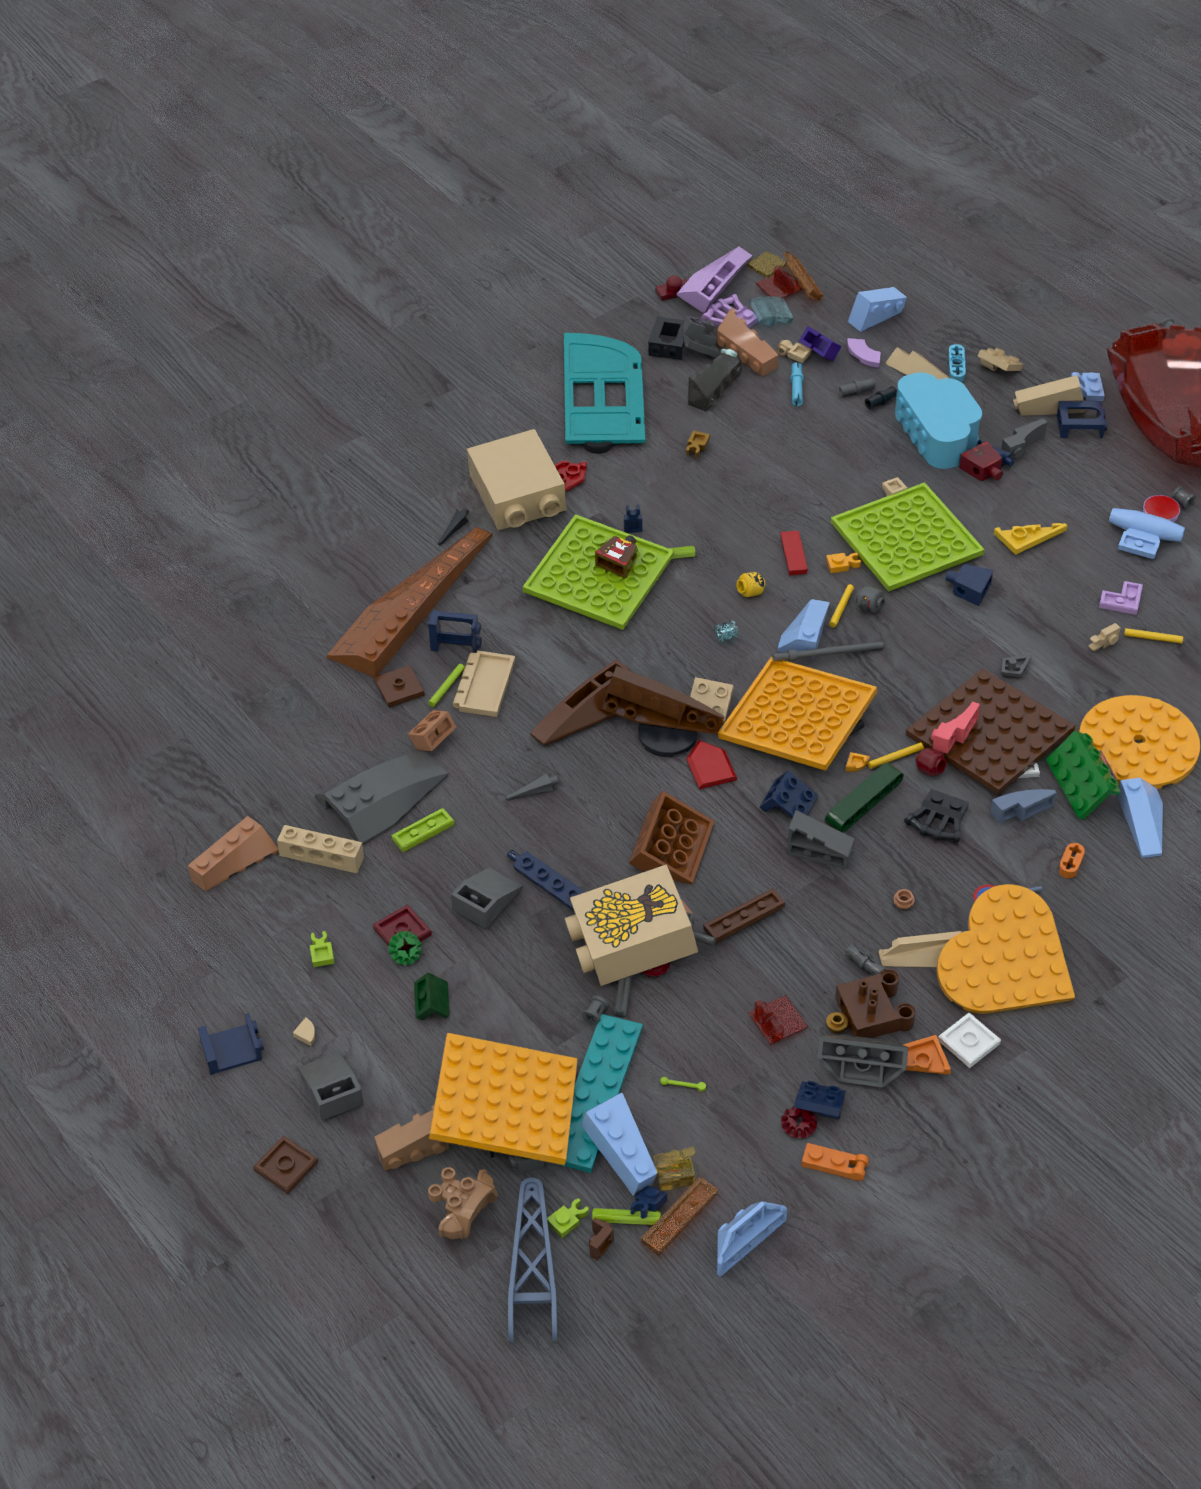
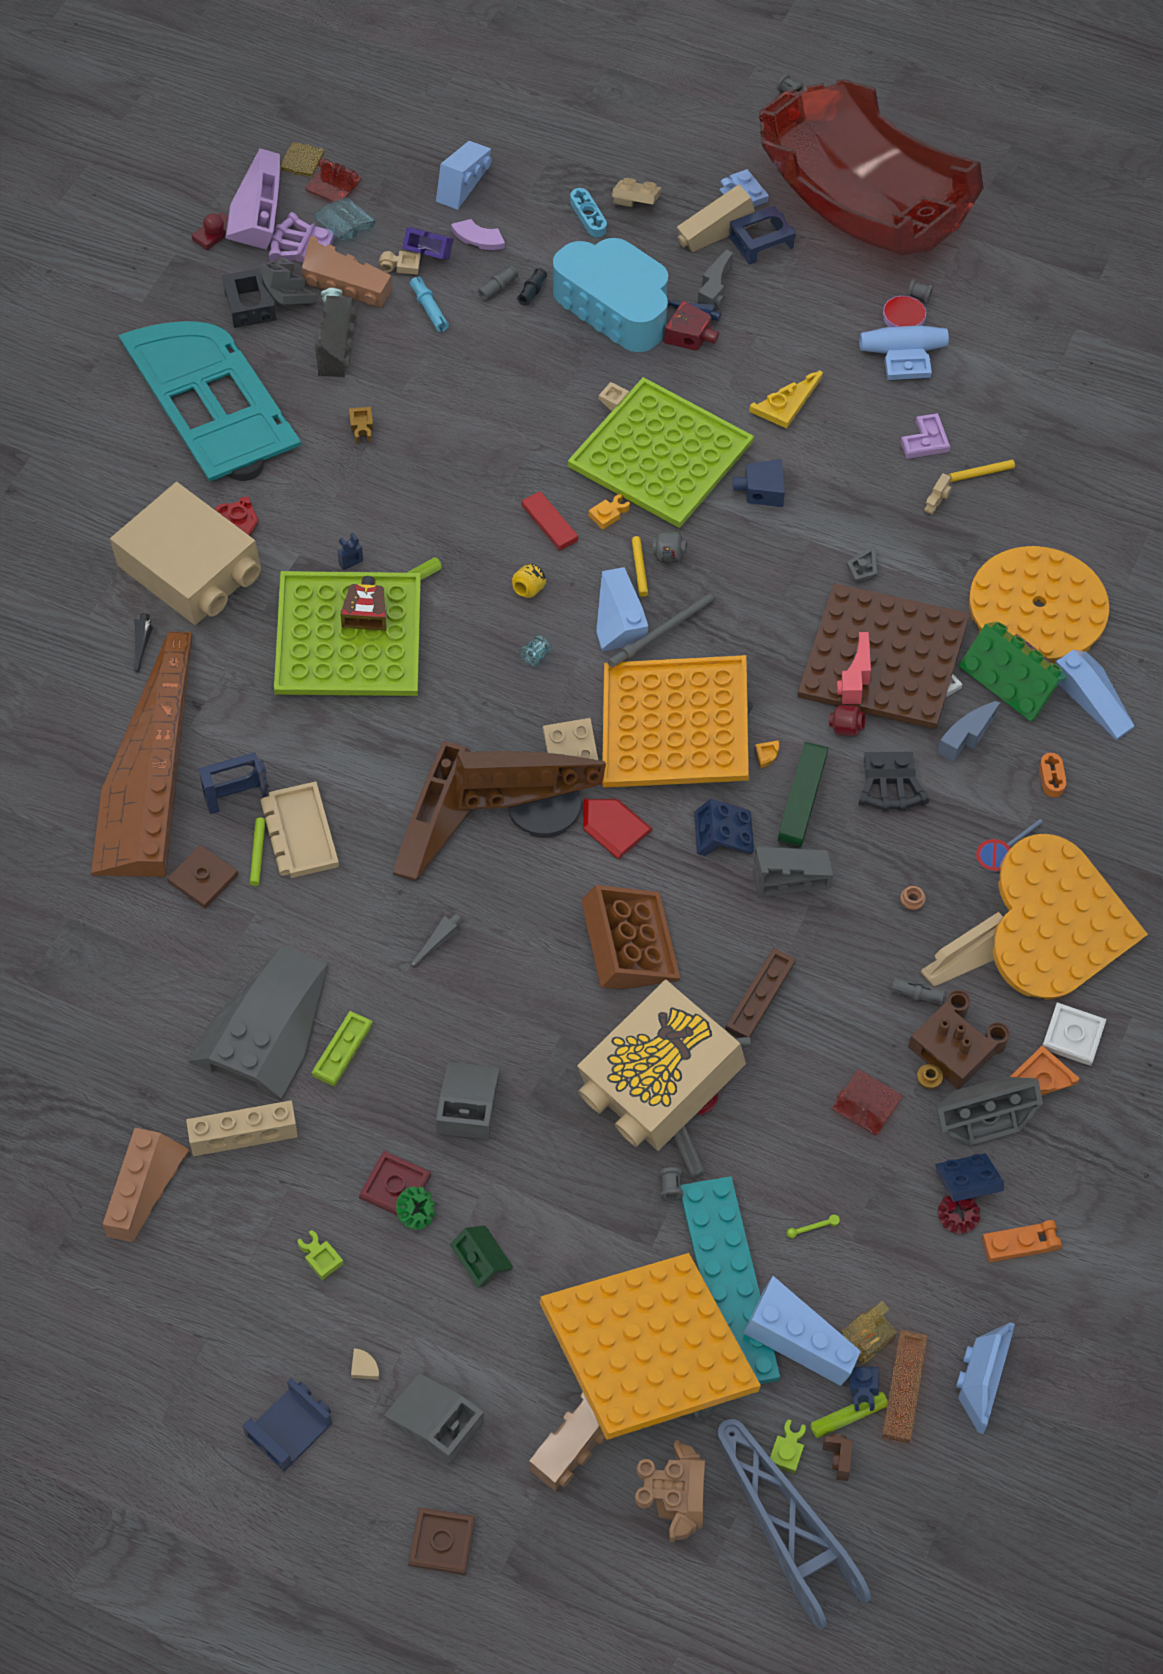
camera: 30 degrees left, 10 degrees up
(432, 730) = (281, 919): nougat brick -> none
(545, 877) = (524, 1047): dark blue plate -> none
(803, 276) = (349, 158): clear orange plate -> none
(895, 755) = (803, 727): yellow bar -> none
(913, 363) = (549, 233): tan wedge -> none

